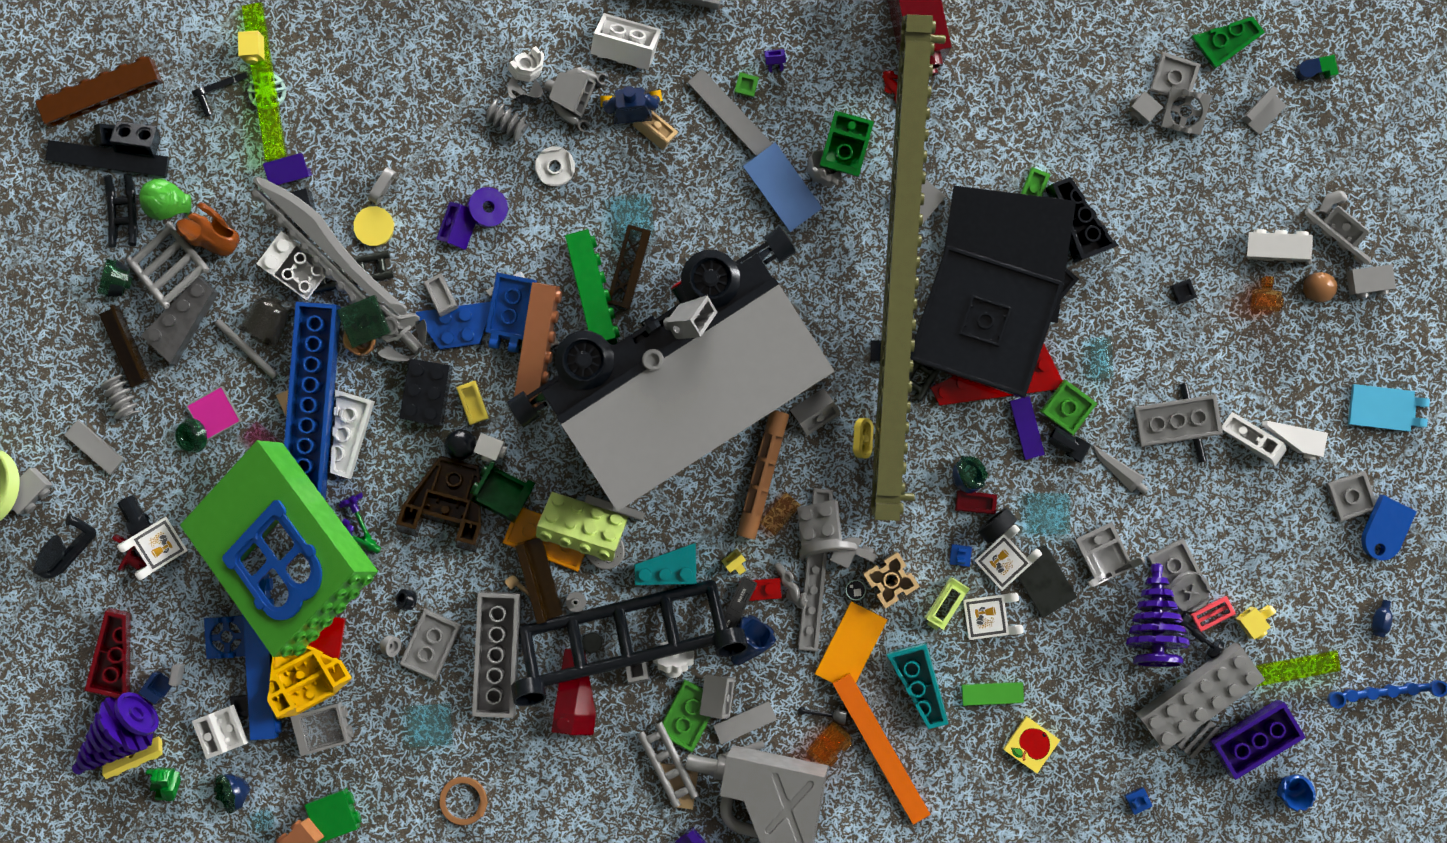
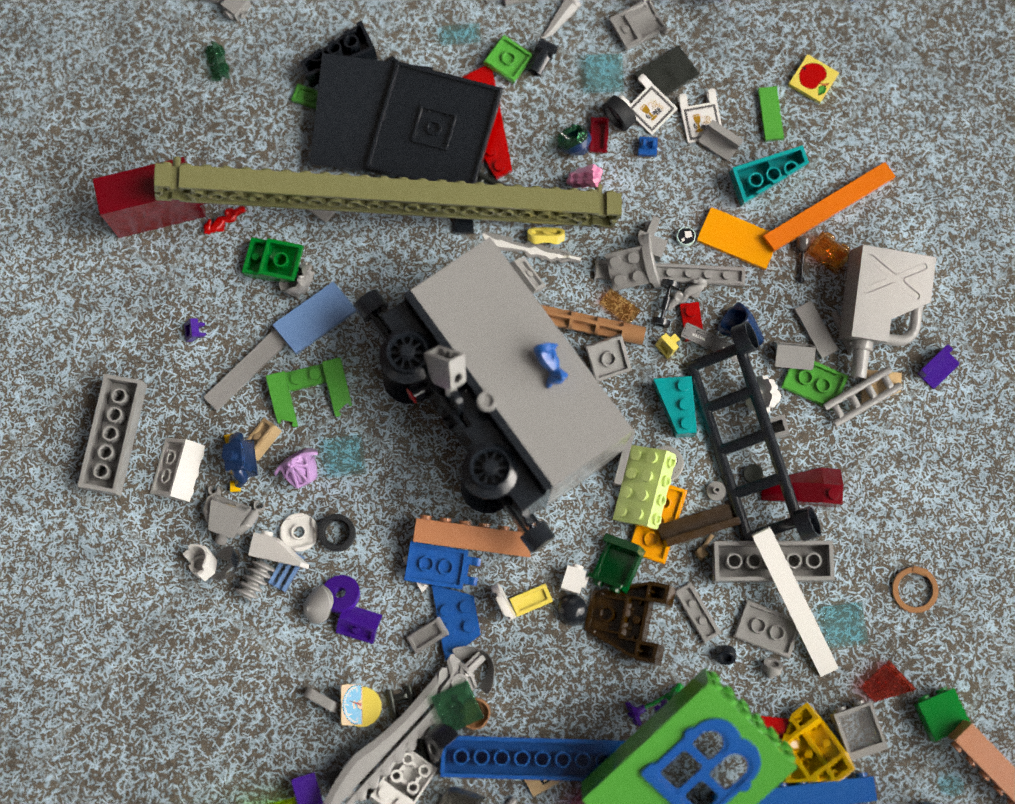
camera: 90 degrees left, 10 degrees down
(331, 302) = (438, 739): none -> black piece
(350, 425) = (559, 719): white wing -> none
(368, 761) = (886, 683): none -> clear red wing
(374, 215) = (351, 704): none -> slope
(426, 392) = (523, 644): black brick -> none
(451, 573) = (697, 612): none -> light grey tile
(453, 673) = (795, 601): none -> white tile
(468, 373) = (503, 602): none -> white tile
(476, 184) = (318, 604): none -> light grey hat
(501, 143) = (290, 579): none -> medium blue tile
(534, 141) = (274, 549): none -> white slope
(551, 190) = (336, 518): none -> black tyre
(590, 285) = (412, 487): green brick -> none
(615, 168) = (299, 468): none -> lavender piece
(637, 265) = (397, 448): dark brown fence -> none
(693, 426) = (549, 360): none -> blue animal
(722, 202) = (329, 372): none -> bright green wedge
(723, 497) = (608, 357): none -> light grey tile
(746, 85) = (218, 356): bright green tile -> none
(780, 562) = (669, 285): none -> black wheel
(857, 394) = (531, 250): none -> light grey sword
(903, 581) = (676, 193): tan brick -> none
(925, 484) = (585, 177): none -> bright pink rock
(952, 583) = (689, 160): yellowish green window -> none
(962, 634) = (720, 140): none -> light grey panel
(1027, 428) = (529, 94): dark purple tile -> none
(1088, 86) = (215, 54): none -> clear green hinge

